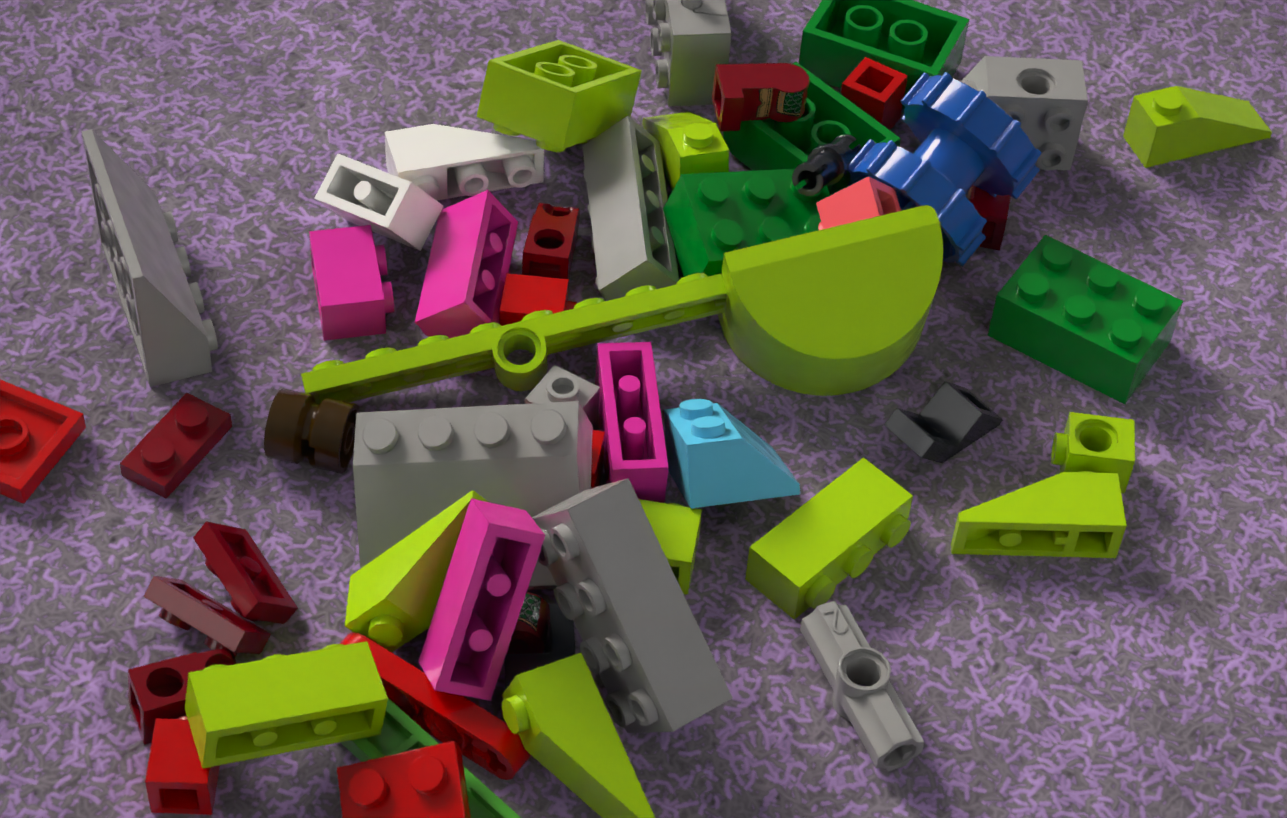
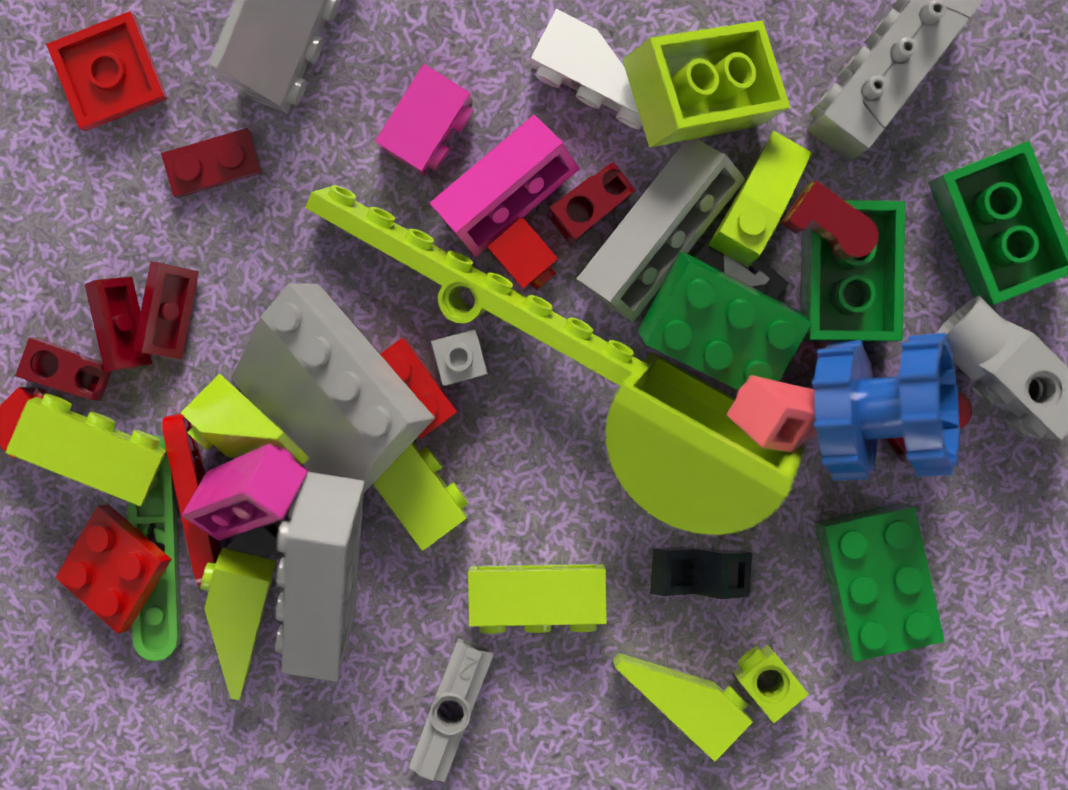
camera: 40 degrees right, 40 degrees up
(310, 430) = (288, 229): dark brown wheel -> none
(380, 200) = (493, 75): white brick -> none
(632, 418) = (488, 410): dark pink brick -> none
(720, 458) = (523, 493): medium azure slope -> none
(825, 165) = (804, 338): black pin -> none
(876, 91) = (937, 270): red brick -> none

